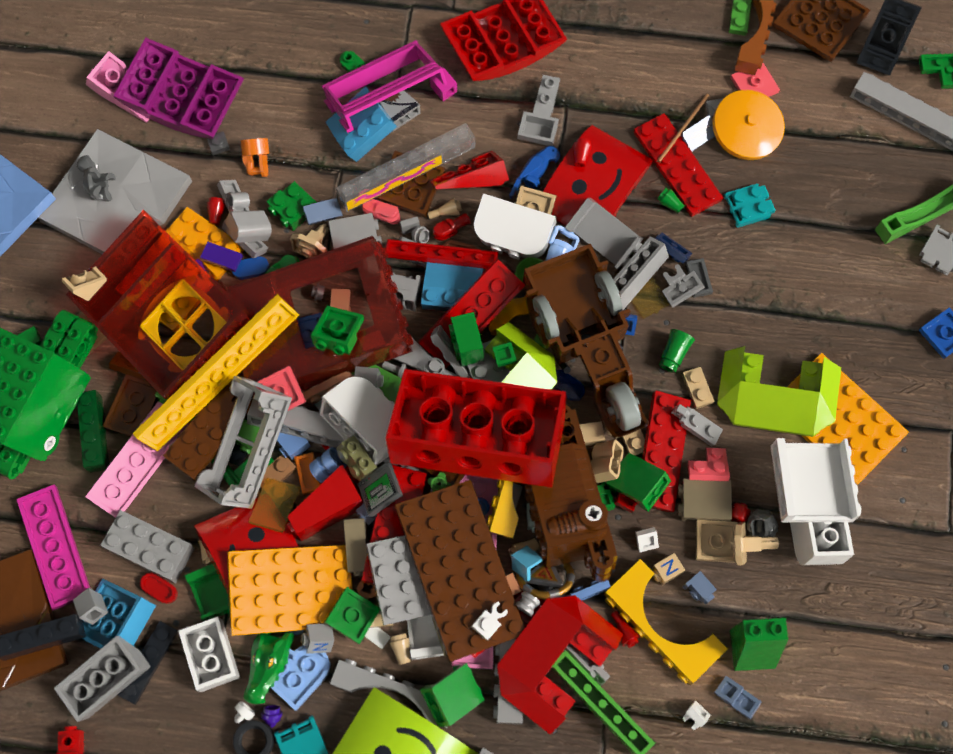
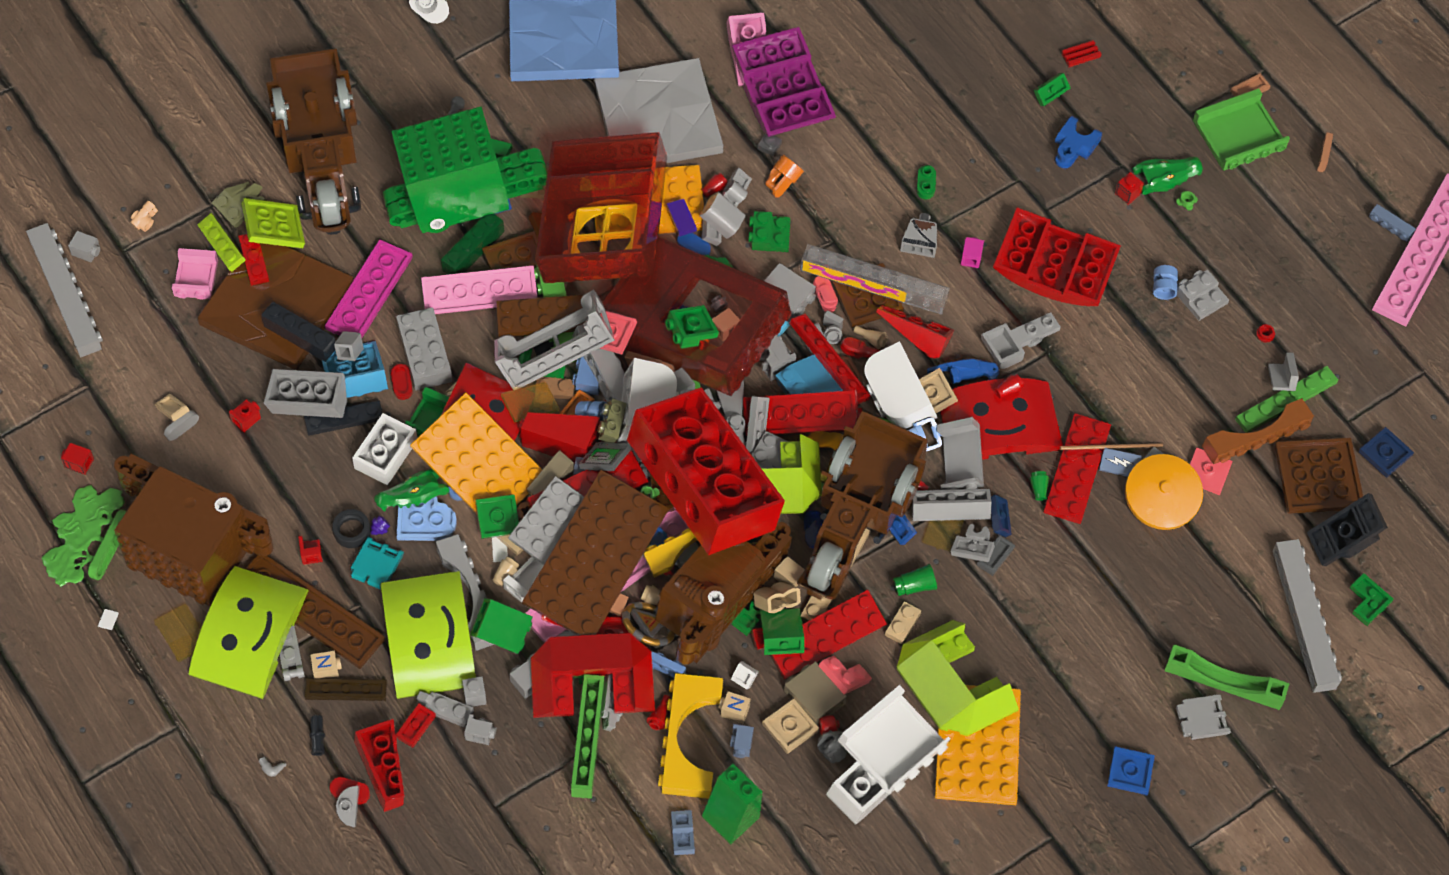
camera: 45 degrees right, 10 degrees down
(86, 283) = (570, 145): tan slope -> none
(94, 183) = (654, 89): dark grey animal -> none
(216, 373) = (581, 278): yellow plate -> none
(244, 711) = (366, 505): white tile -> none
(311, 244) = (752, 265): tan piece -> none
(318, 638) = (460, 508): light grey brick -> none
(322, 211) = (784, 254): sand blue slope -> none
(369, 129) = (878, 223): dark azure slope -> none
(373, 71) = (929, 196): dark pink piece -> none
(466, 339) = (773, 421): green brick -> none
(488, 623) = (573, 603): white plate -> none
(504, 354) = (786, 455): green plate -> none
(524, 560) = (644, 597): medium azure panel -> none
(527, 603) = (614, 623): light grey wheel -> none
(697, 424) = (870, 642): light grey hinge -> none
(698, 714) = (643, 811): white tile -> none
(742, 544) = (803, 740): tan piece -> none
(750, 204) = (1097, 547): teal plate -> none

